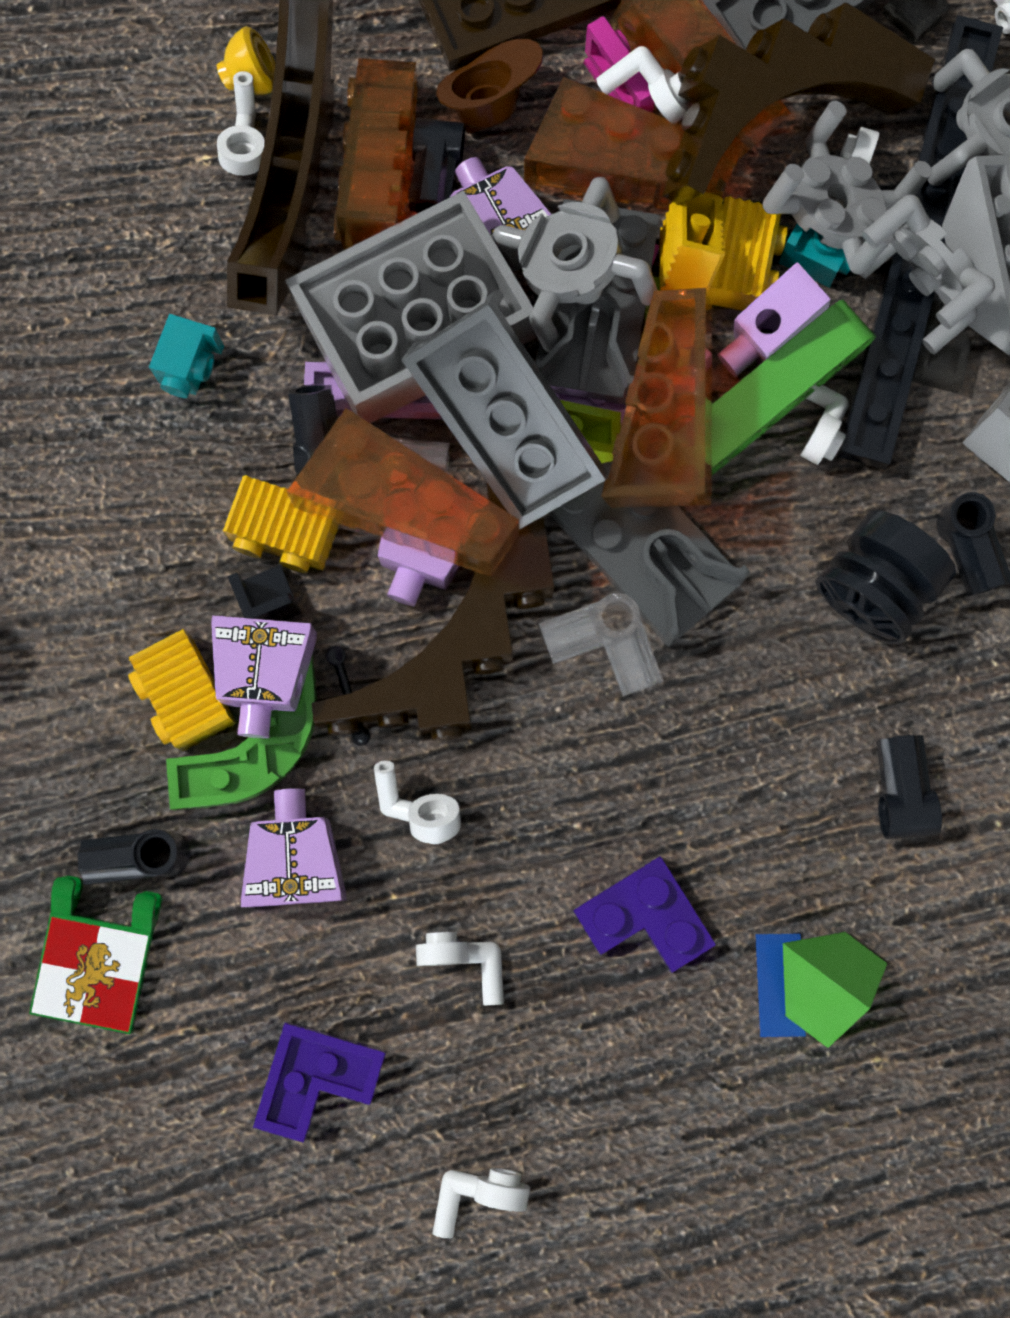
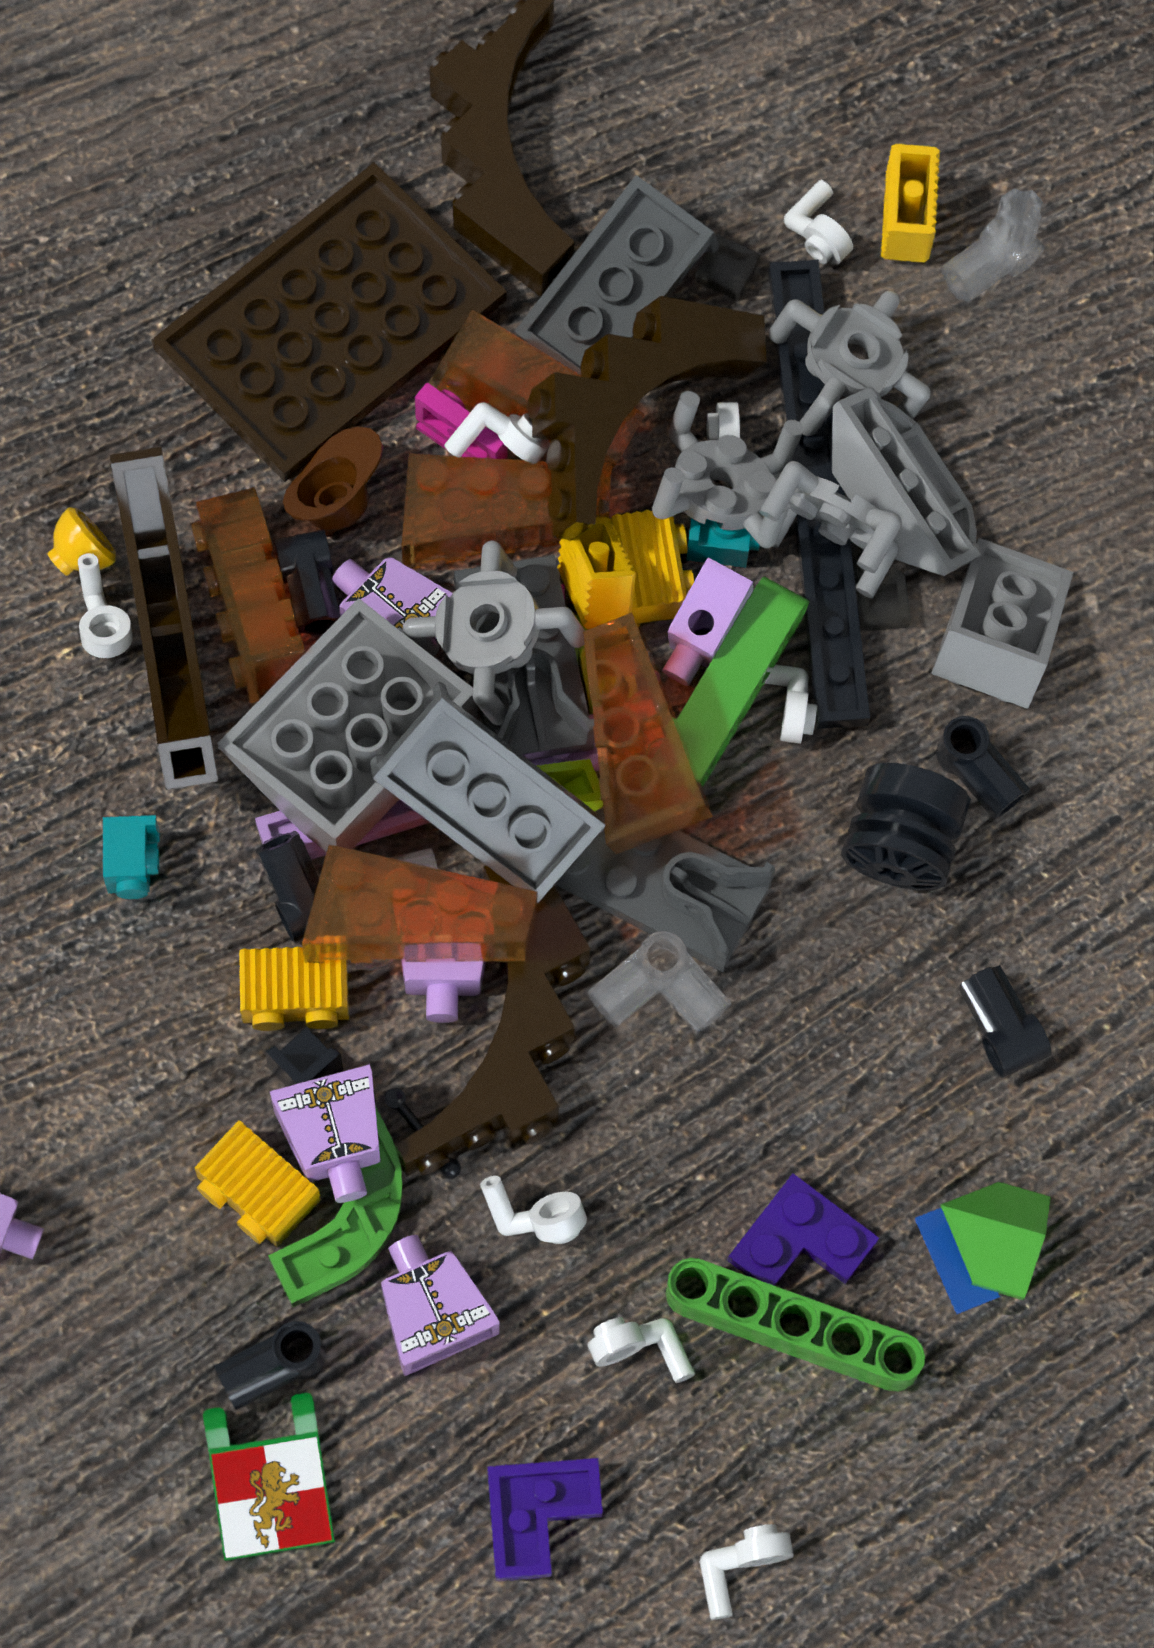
camera: 25 degrees left, 10 degrees down
(624, 1018) = (821, 1319): none -> bright green beam

